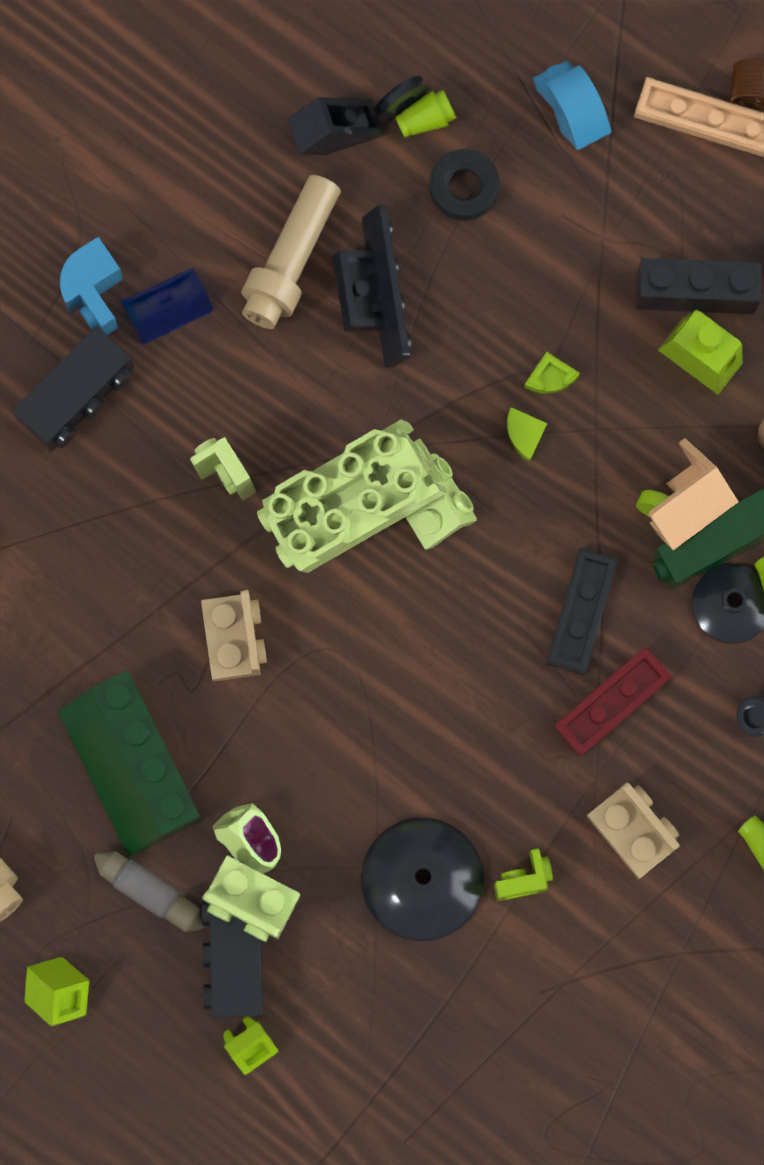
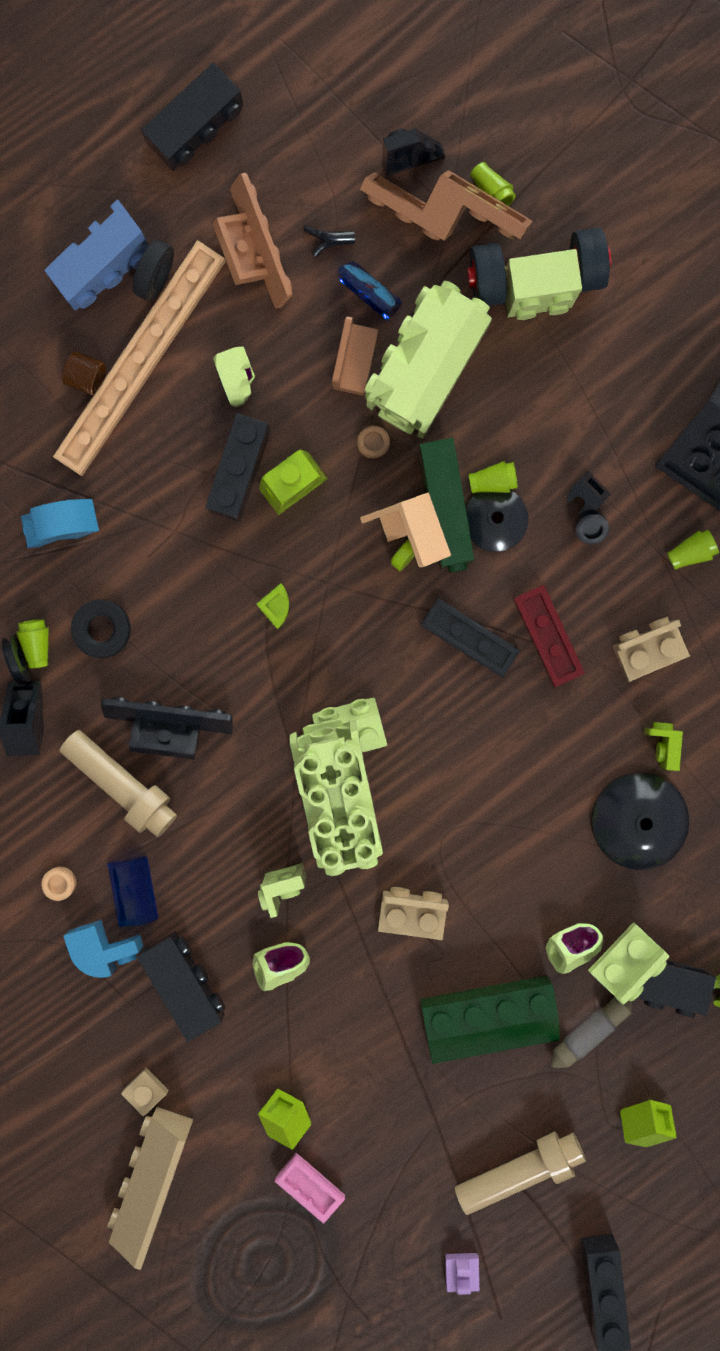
camera: 70 degrees left, 10 degrees up
(130, 495) = (279, 964): none -> yellowish green rock
(152, 219) = (58, 883): none -> light nougat tile
(524, 432) = (315, 640): lime tile -> none

